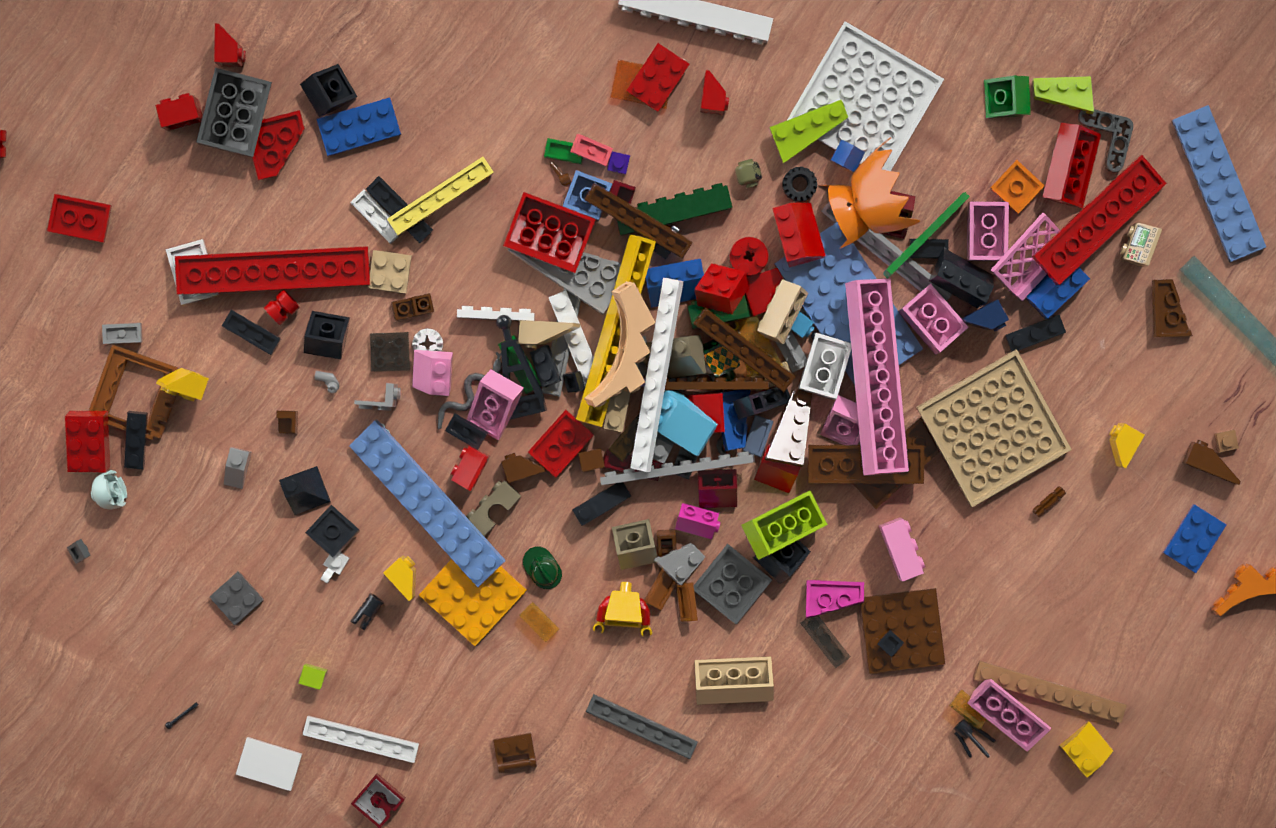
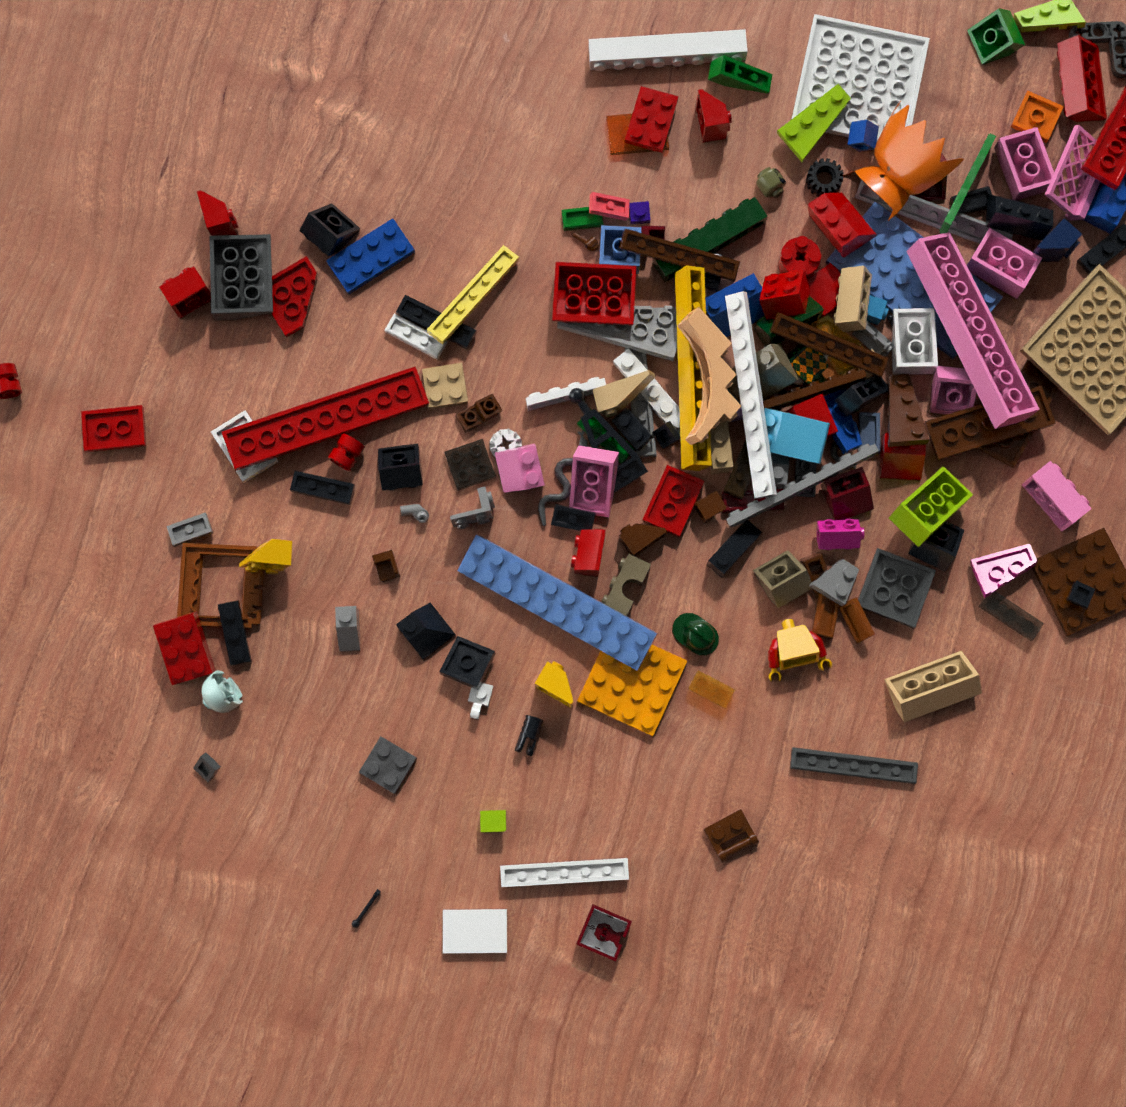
camera: 15 degrees left, 10 degrees down
(754, 60) = (739, 75): none -> green slope

